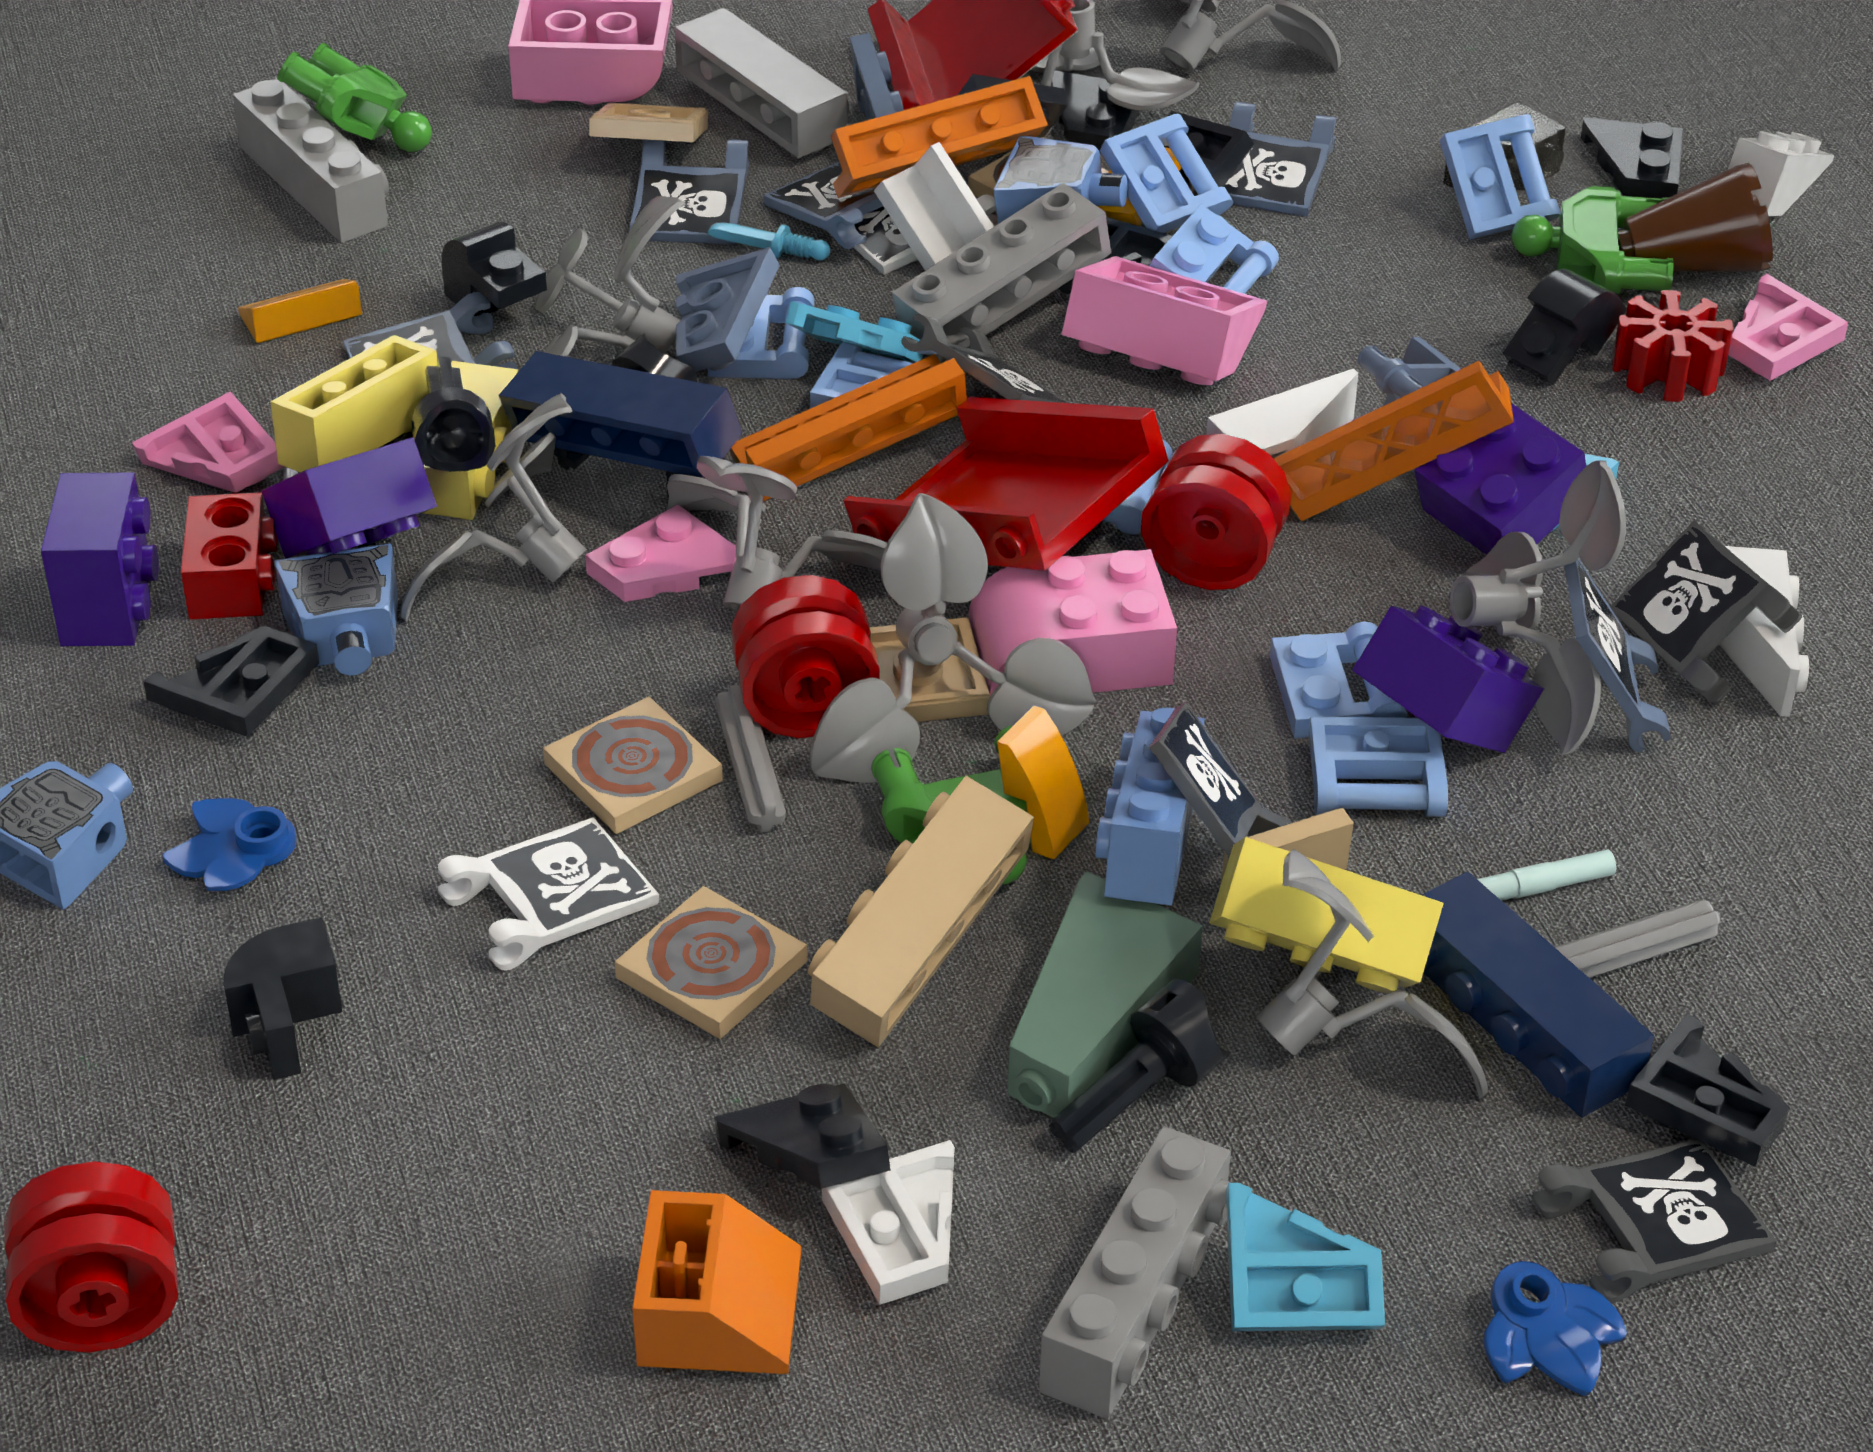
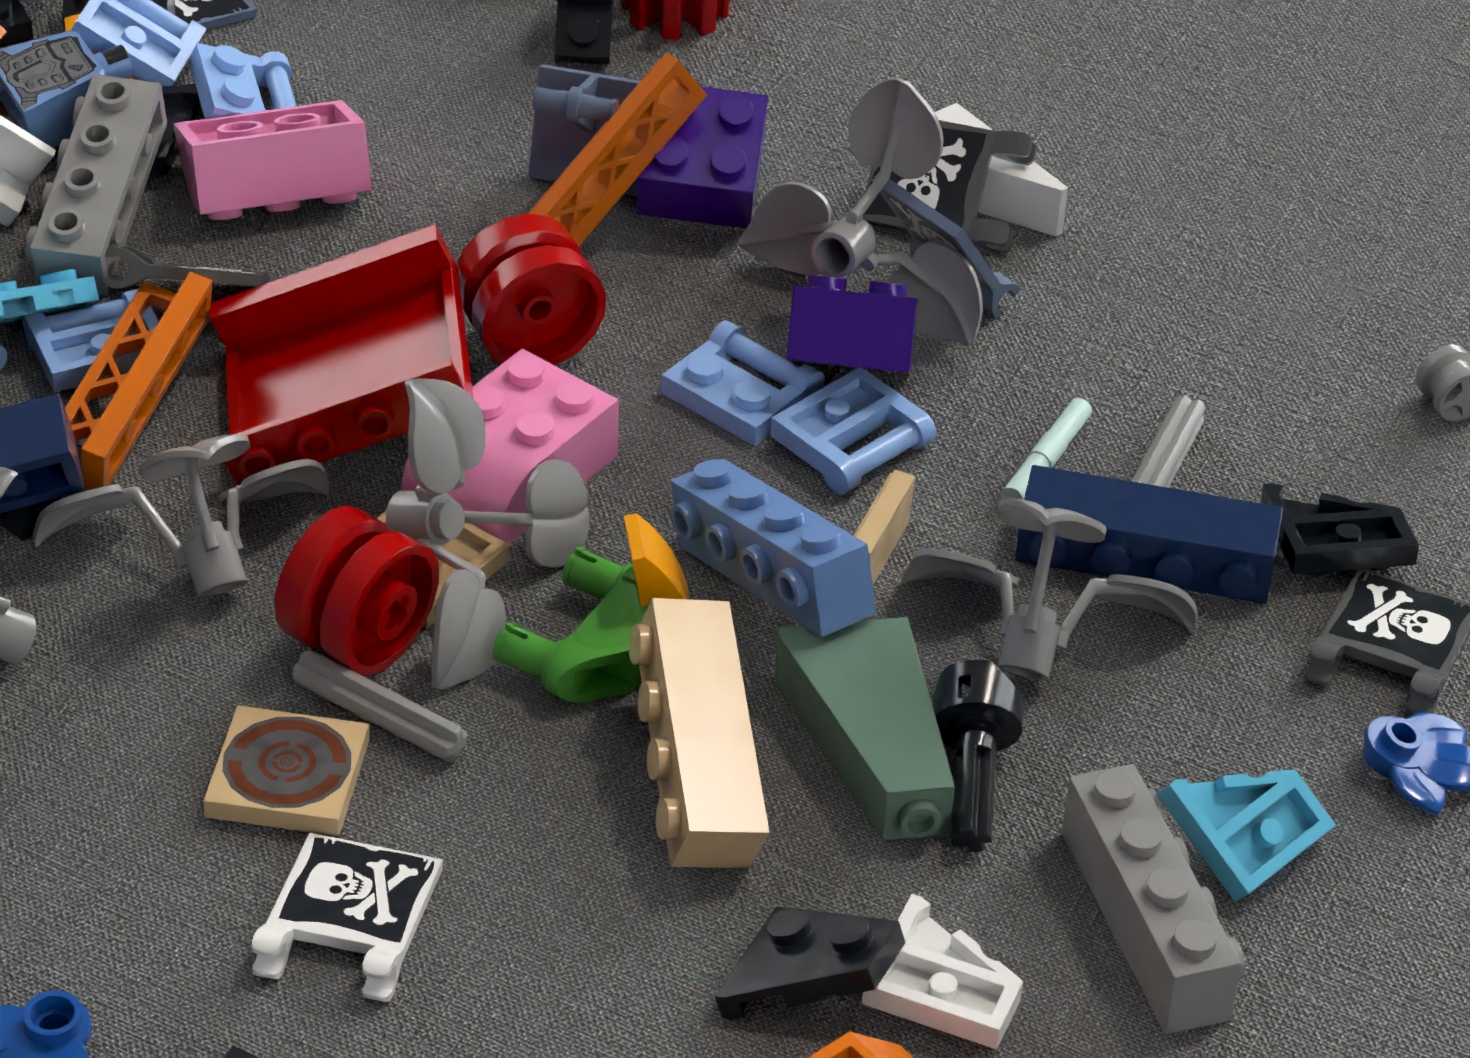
camera: 45 degrees left, 0 degrees up
(661, 557) = (91, 583): bright pink wing -> none
(711, 962) = (553, 884): tile -> none
(1210, 780) = (880, 545): flag -> none
(1261, 910) = (975, 555): light yellow brick -> none
(1291, 416) = (471, 195): white slope -> none

